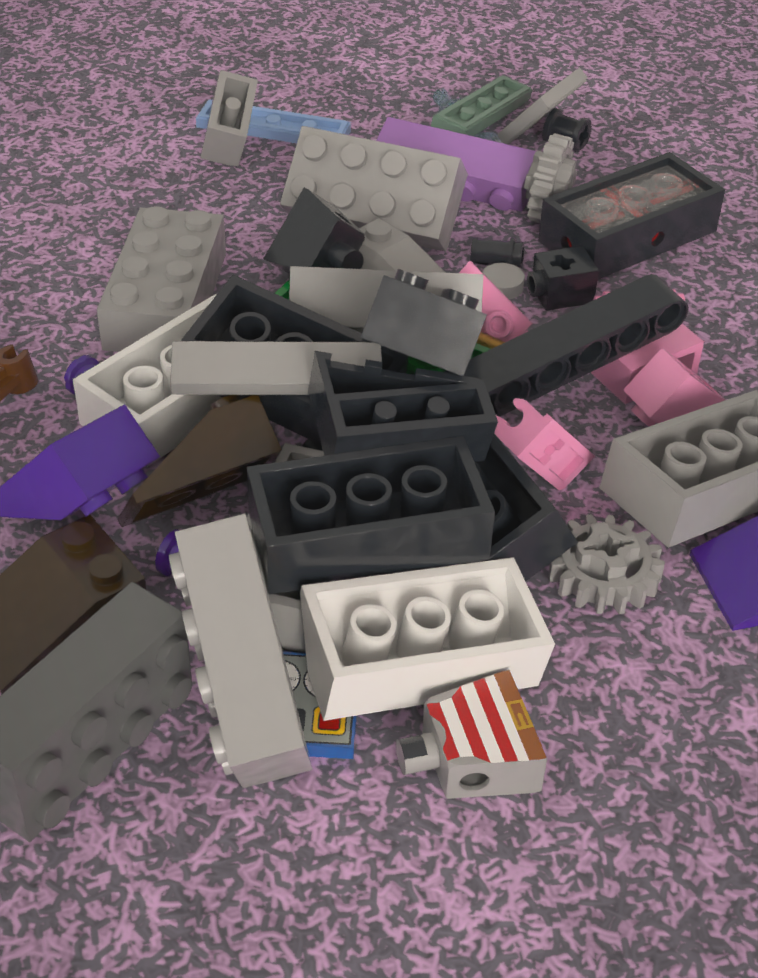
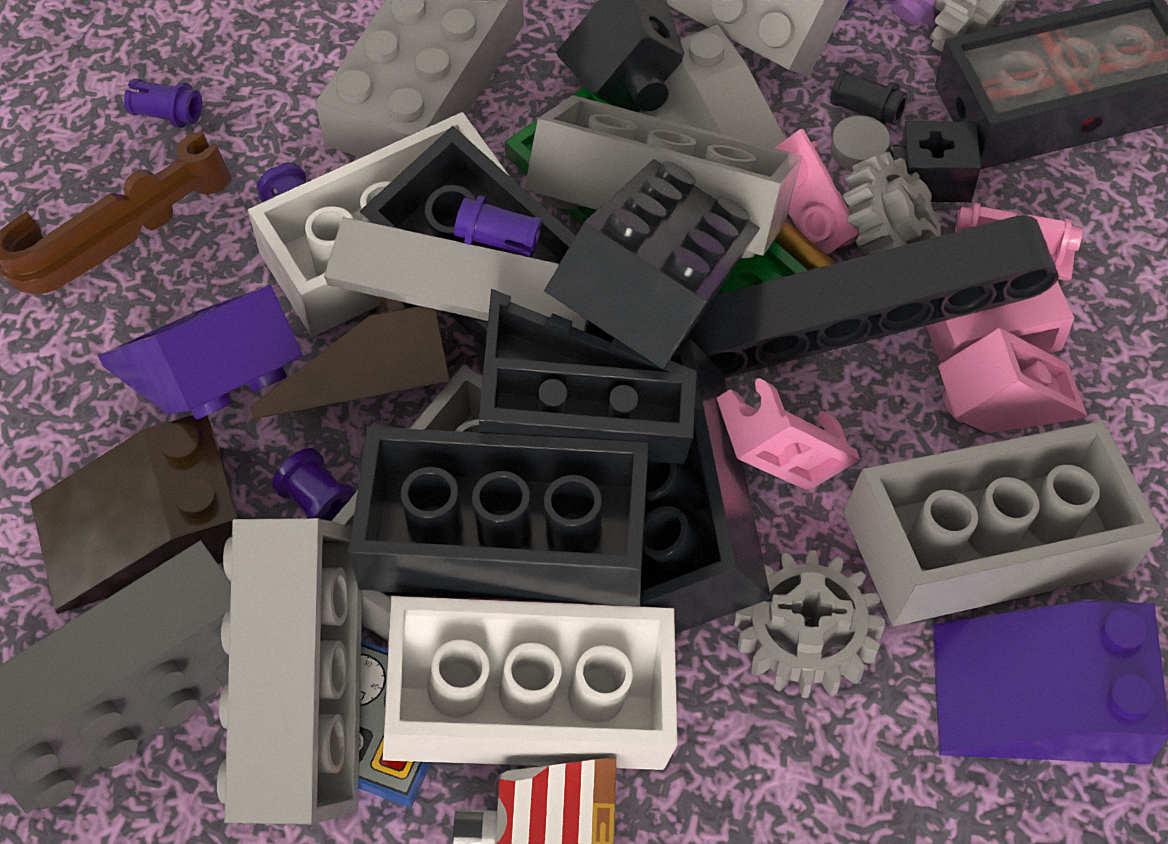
camera: 20 degrees right, 15 degrees up
(293, 326) = (497, 227): none -> dark purple pin
(544, 296) = (889, 205): none -> light grey gear

